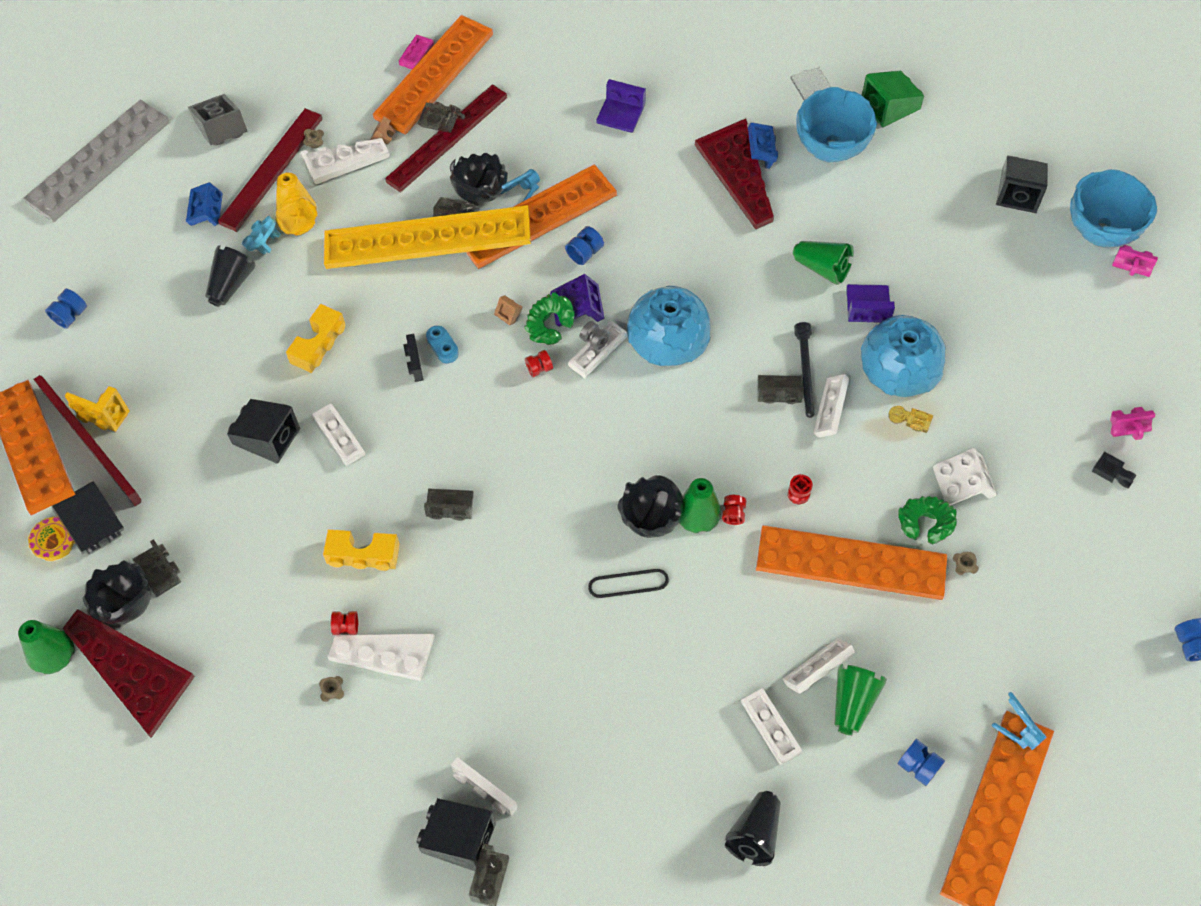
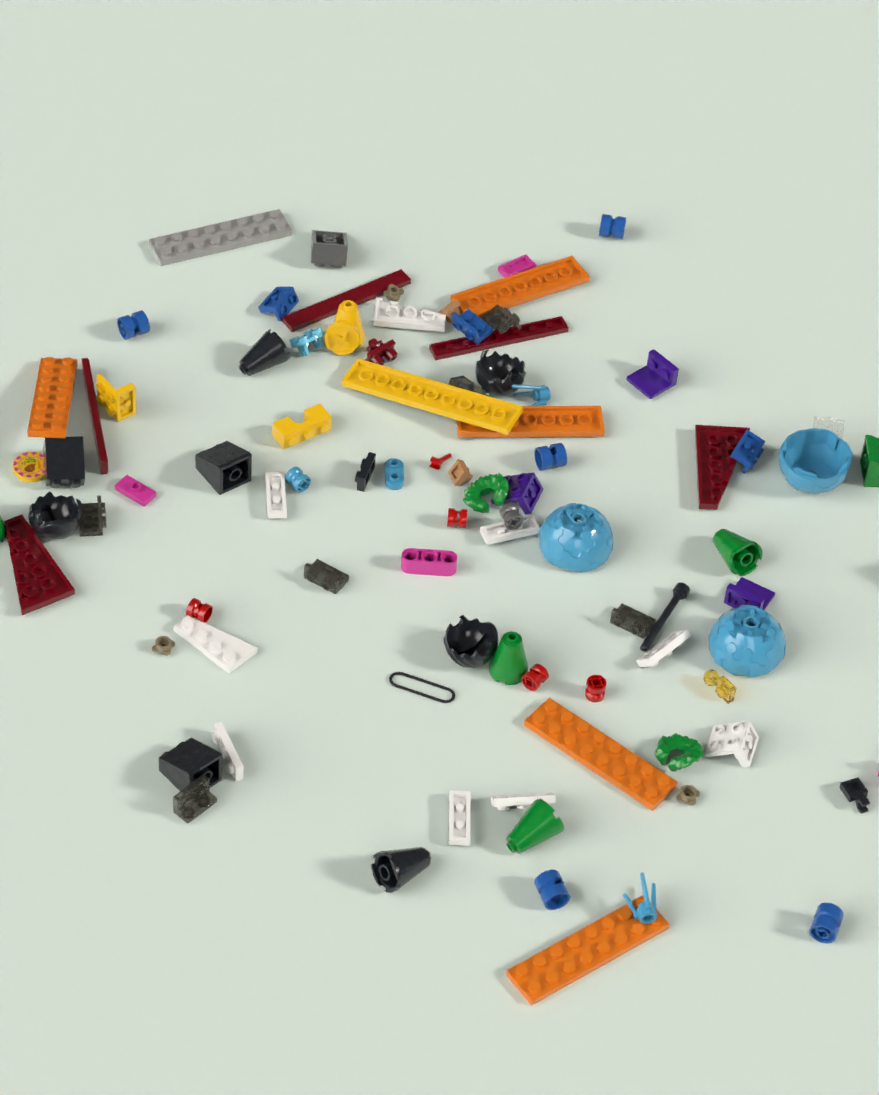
camera: 25 degrees right, 15 degrees down
(185, 507) = (135, 490): none -> dark pink plate
(348, 206) = (377, 350): none -> dark red hips
(351, 404) = (298, 479): none -> dark azure wheel
(380, 554) = (252, 581): yellow arch -> none
(416, 138) = (472, 326): none -> blue bracket
(476, 309) = (437, 463): none -> red hand
(547, 422) = (428, 562): none -> dark pink beam

